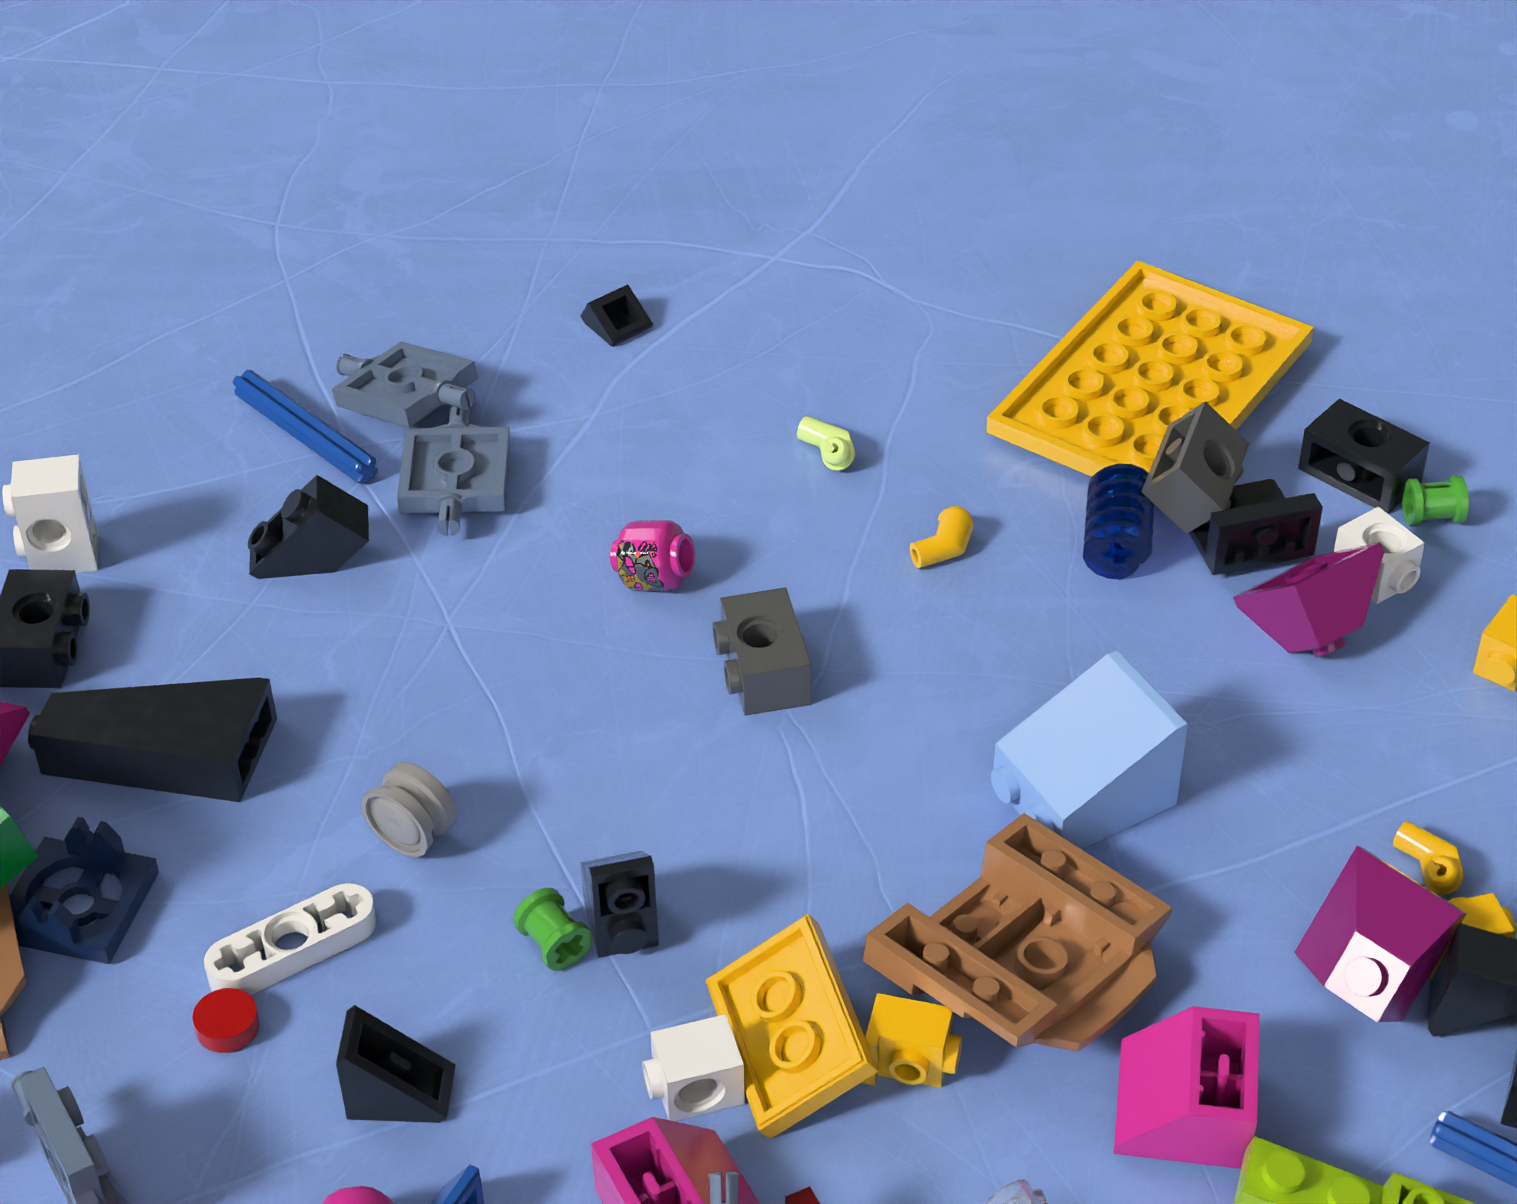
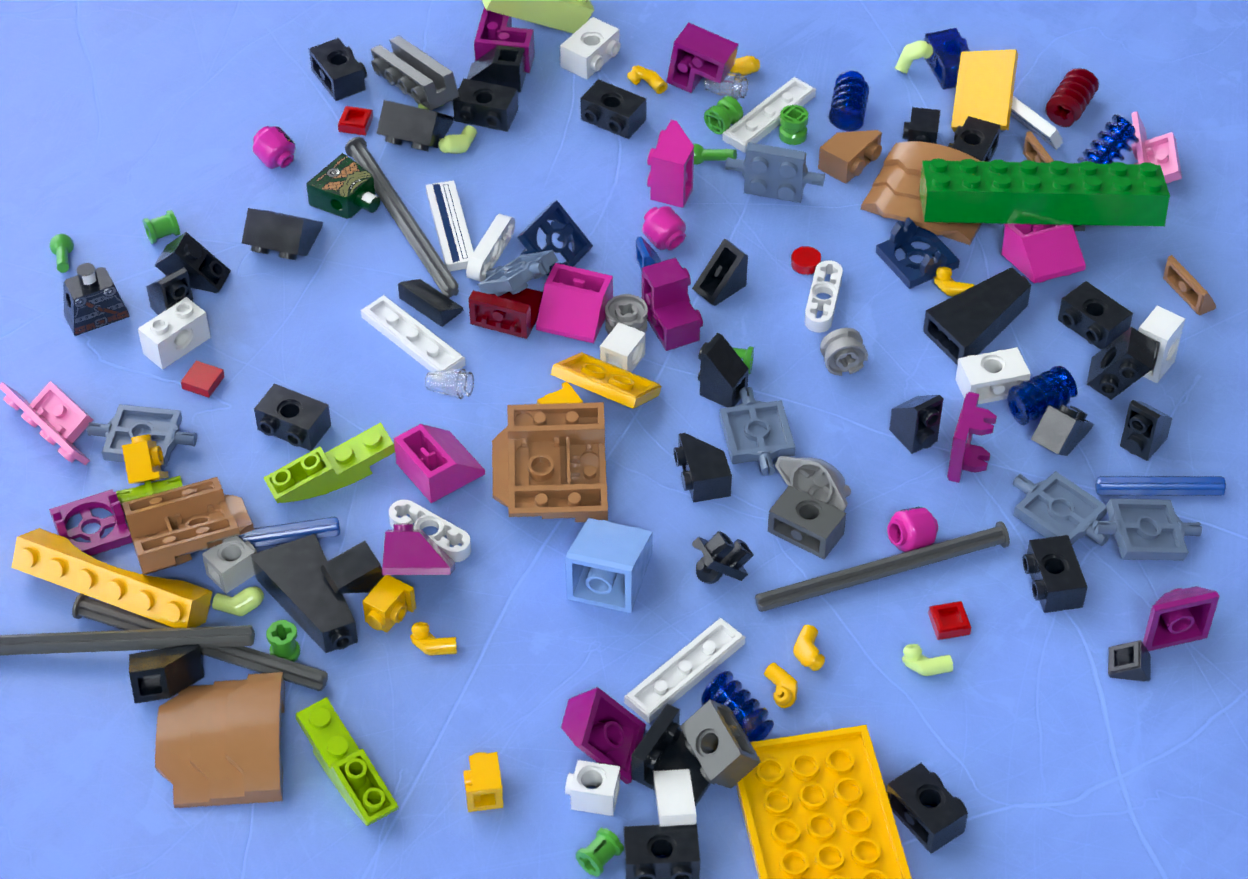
camera: 135 degrees right, 5 degrees up
(110, 807) = (947, 284): none -> yellow arm
(115, 497) = (1121, 363): none -> black brick
(227, 459) = (1144, 429): none -> black slope
(268, 586) = (1035, 395): none -> clear blue piece
(280, 645) = (991, 374): none -> white brick
(458, 602) = (964, 454): none -> magenta piece
(463, 645) = (917, 422): none -> black slope
(522, 284) = (1180, 617): none -> magenta slope
(545, 1067) = (669, 304): none -> magenta brick
(567, 414) = (1055, 574): none -> black brick
(609, 1108) = (627, 310): none -> light grey wheel
(670, 806) = (756, 431): none -> sand blue plate
(685, 679) = (816, 478): none -> light grey hat
(741, 467) = (949, 620): none -> red tile
(753, 556) = (883, 567): none -> dark grey axle
(811, 803) = (704, 469): none -> black slope
(945, 669) = (721, 558): none -> black hips
(1016, 323) = (934, 825): none -> black brick
(1023, 520) = (786, 685): none -> yellow arm
(1118, 617) = (684, 670): none -> white tile
(1290, 1042) = (423, 518): none -> white beam
(1303, 461) = (674, 797): none -> white tile

